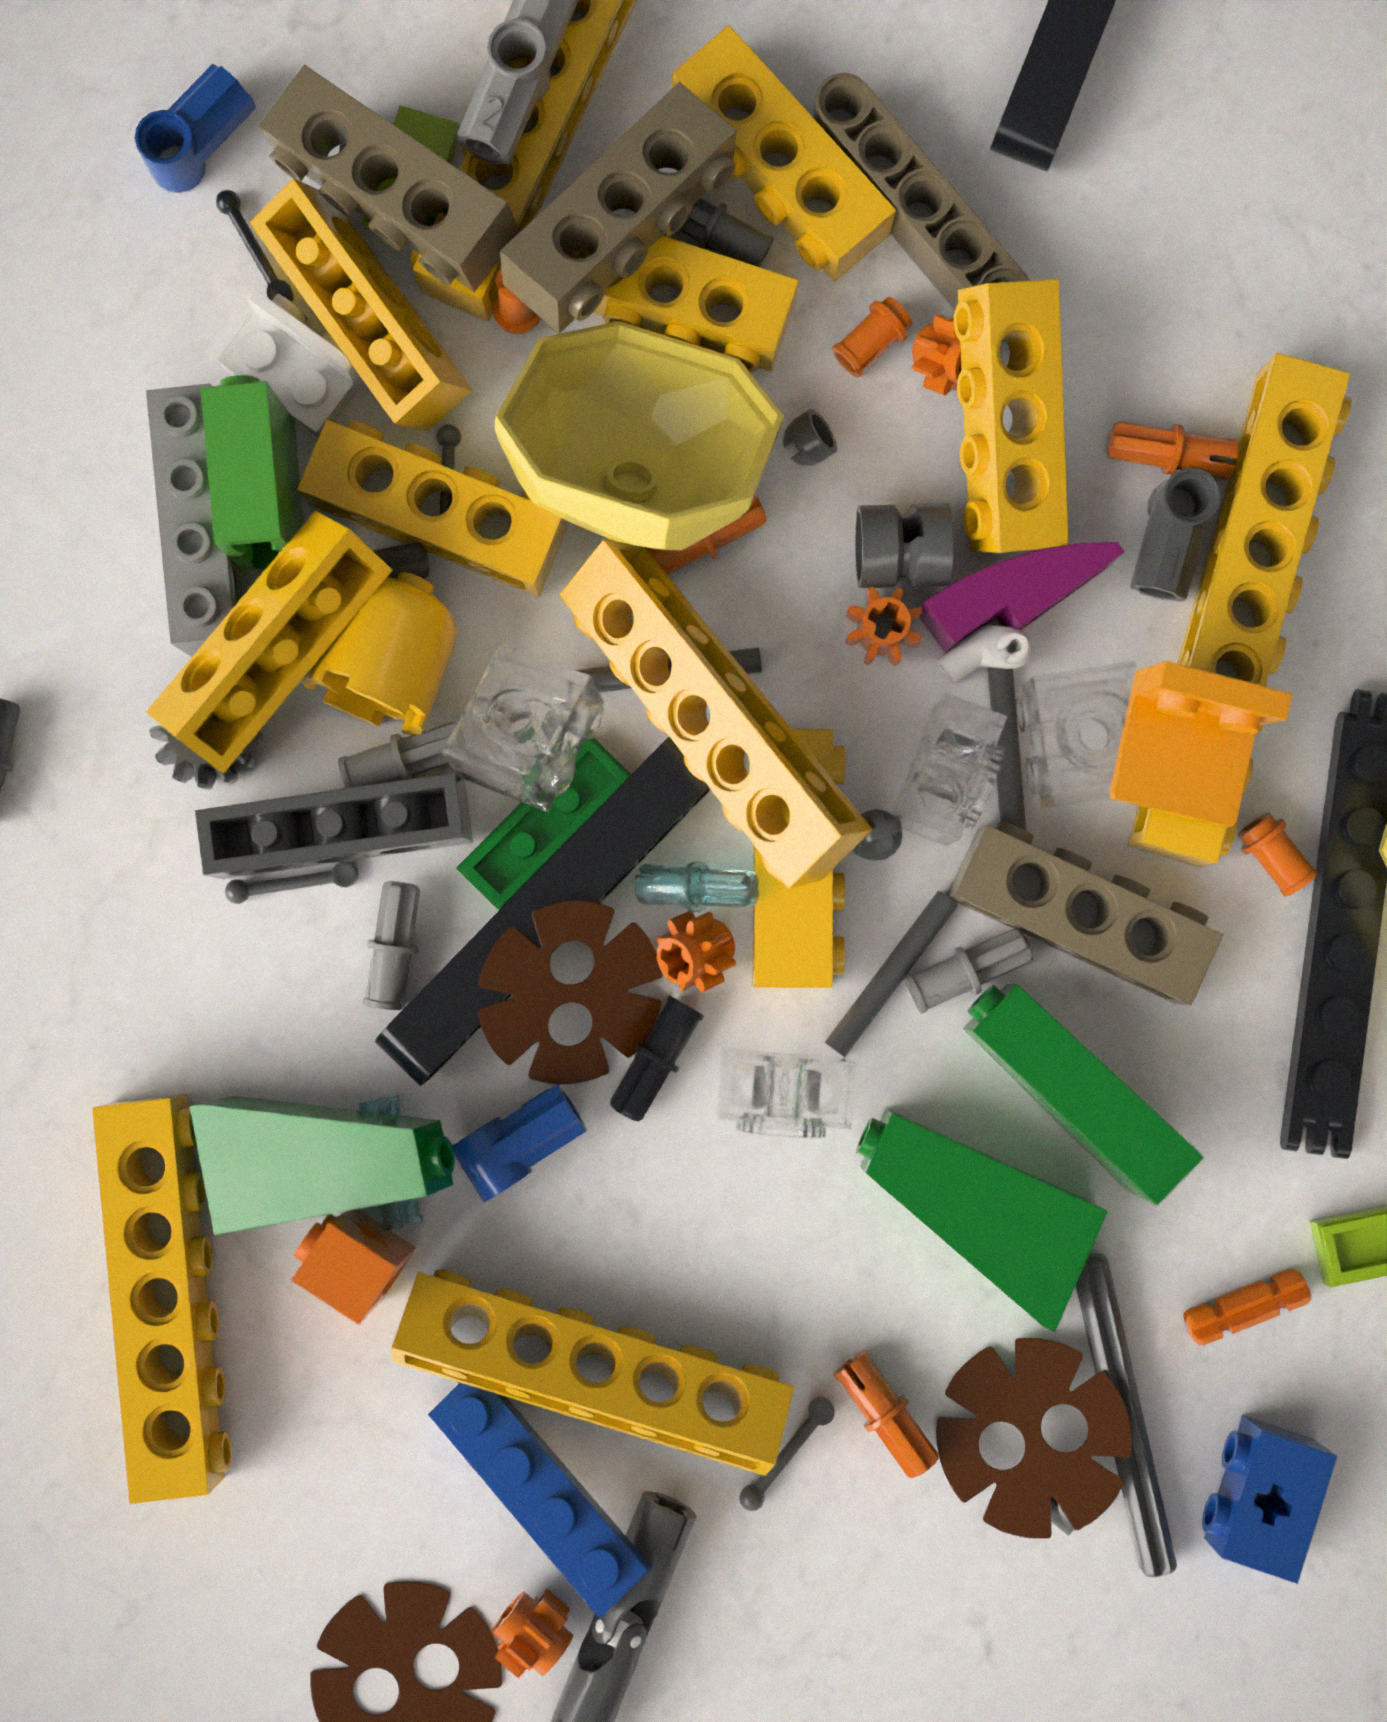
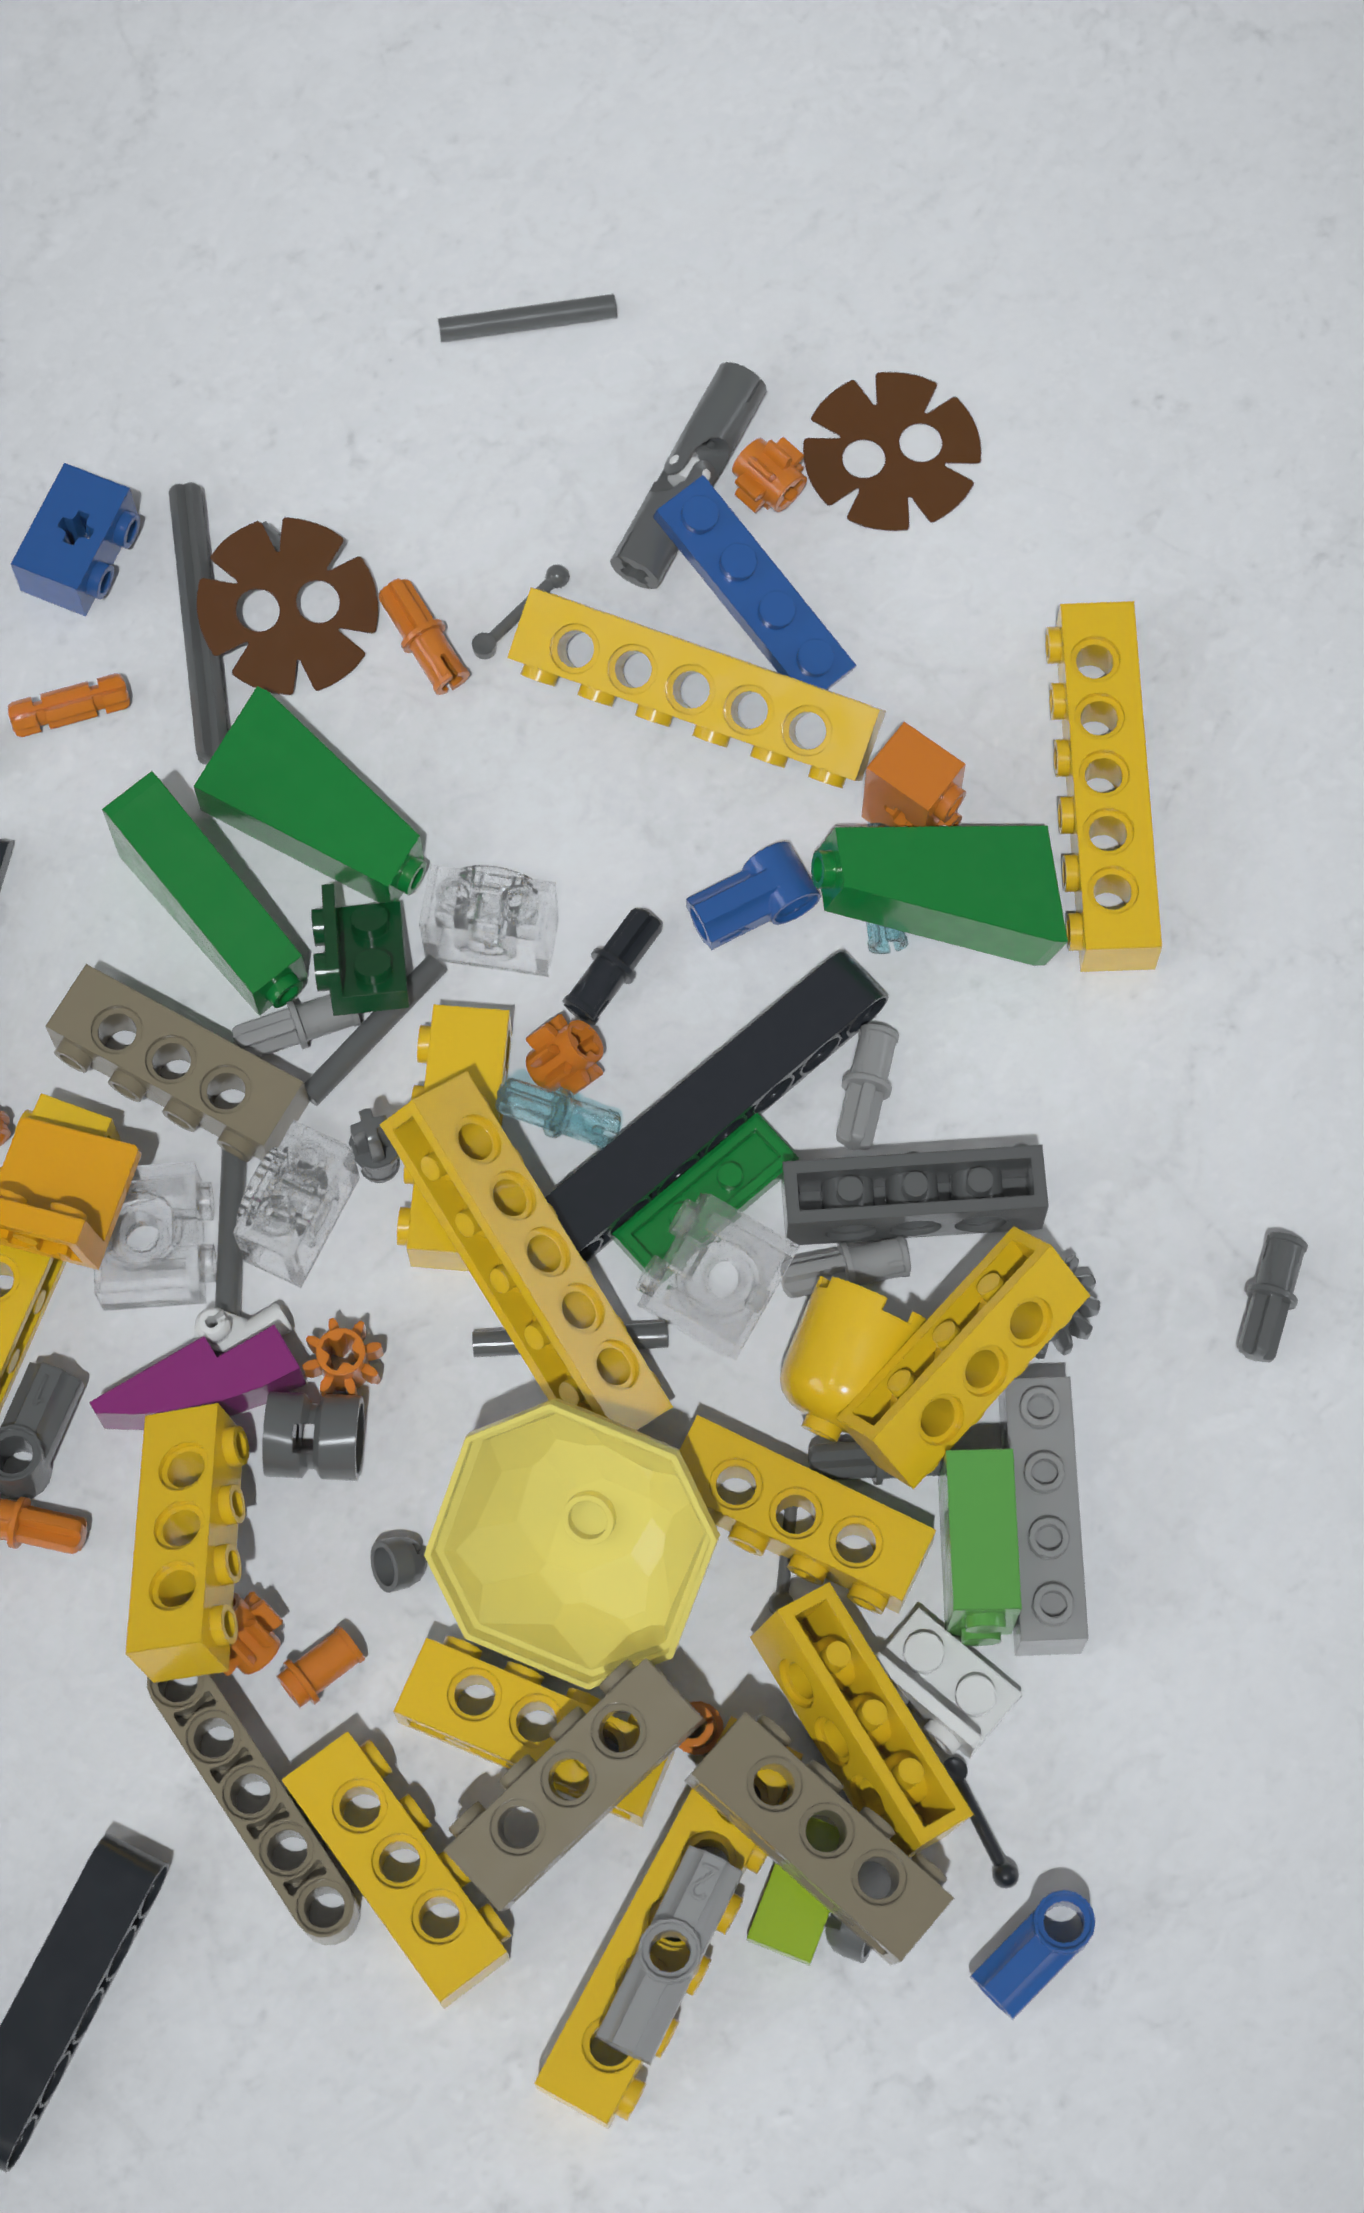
camera: 175 degrees left, 15 degrees down
(524, 971) = (730, 1037): reddish brown piece -> none
(726, 233) = (463, 1788): dark grey axle -> none
(911, 1043) = (362, 955): none -> dark green bracket

